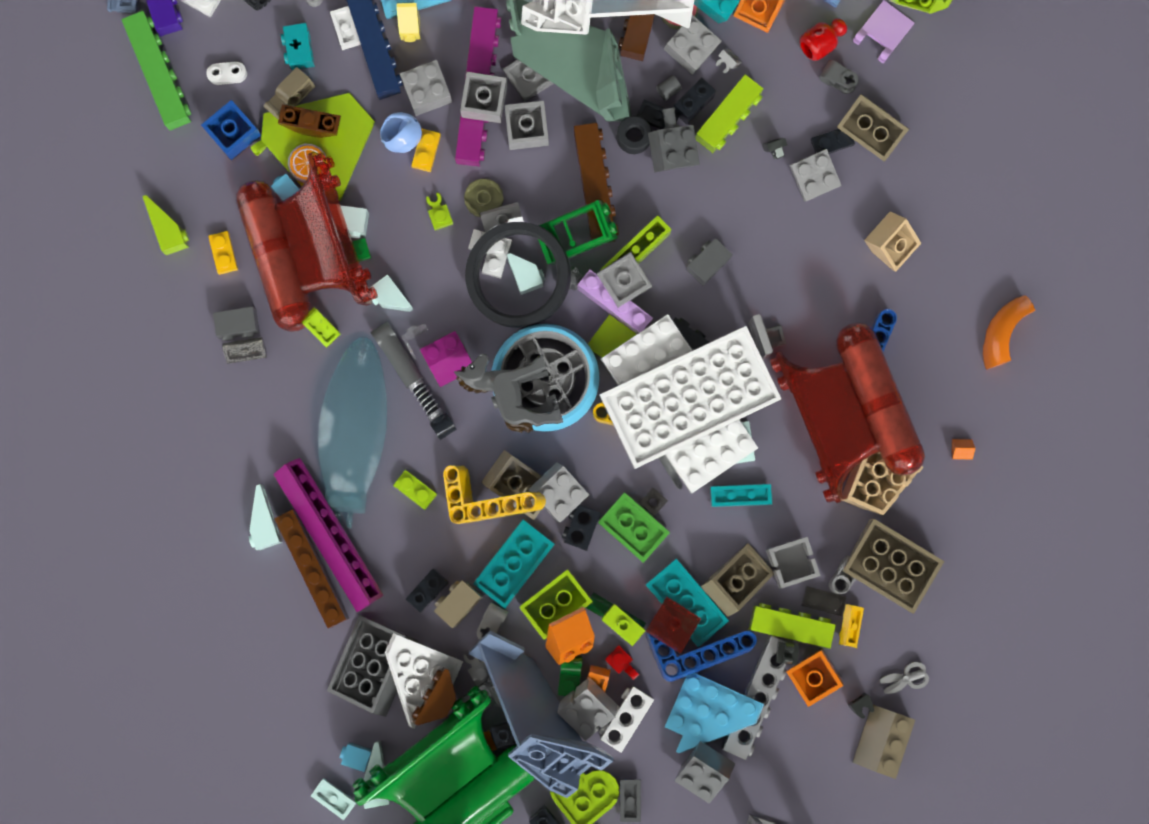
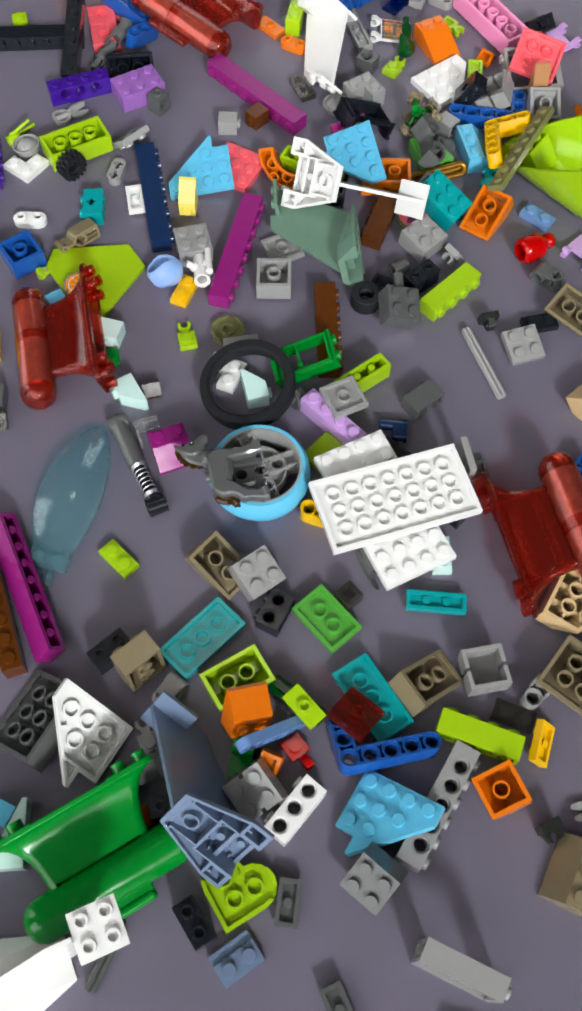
camera: 10 degrees right, 20 degrees down
(309, 122) = (88, 253): reddish brown slope -> none
(320, 327) = (61, 408): lime plate -> none
(411, 286) = (151, 389): none -> slope
(436, 700) = (96, 757): reddish brown slope -> none
(442, 122) = (202, 268): none -> white pin
(483, 97) = (240, 247): light grey brick -> none
(487, 507) = (168, 580): yellow beam -> none
(593, 656) = (269, 734): none -> medium blue beam
(686, 300) = (398, 428): none -> dark blue piece
(772, 203) = (484, 363): none -> light grey axle
(787, 653) = (473, 758): pearl dark grey tile -> none

